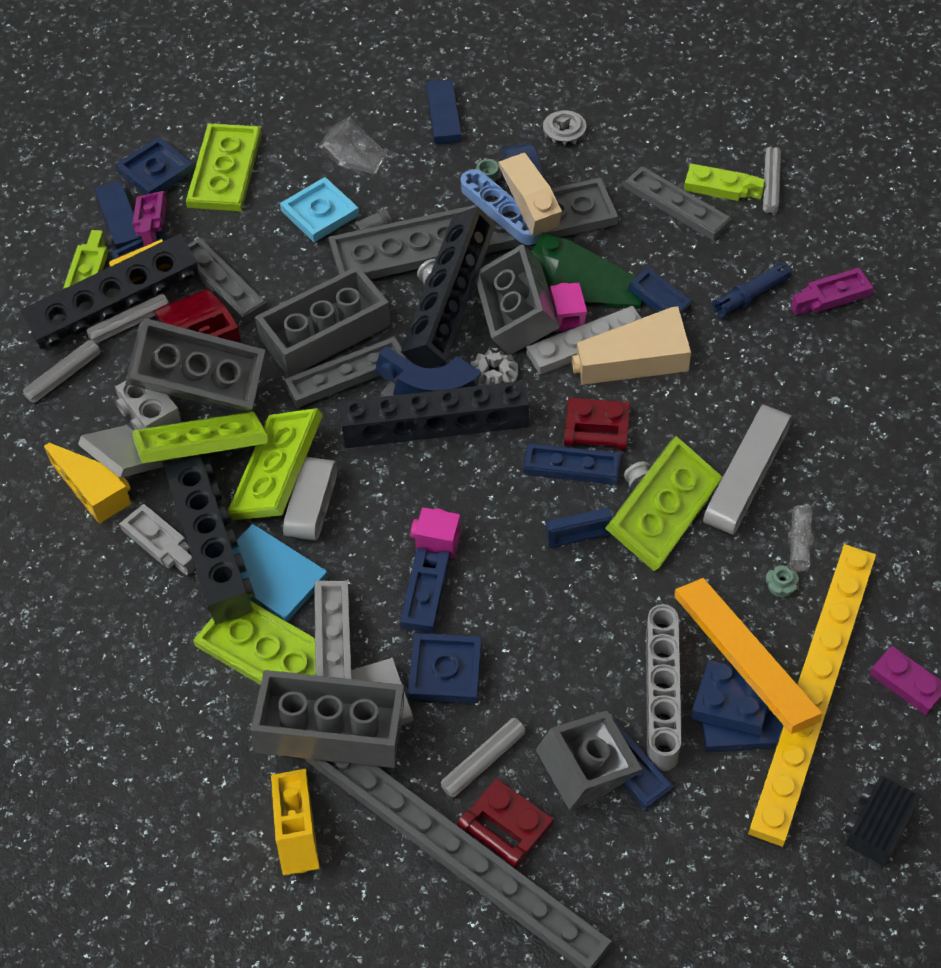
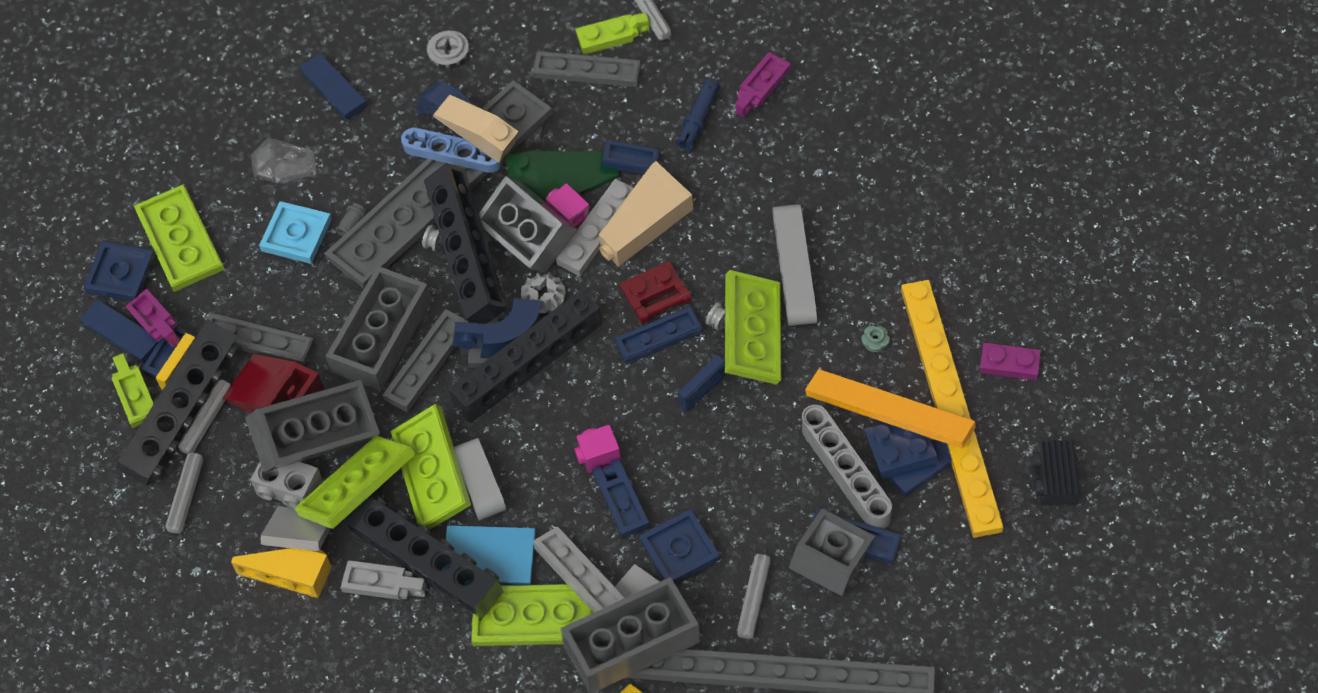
camera: 30 degrees left, 5 degrees up
(490, 169) = (411, 118): sand green plate -> none
(510, 814) = (803, 624): dark red plate -> none
(800, 538) = (867, 297): clear pin -> none

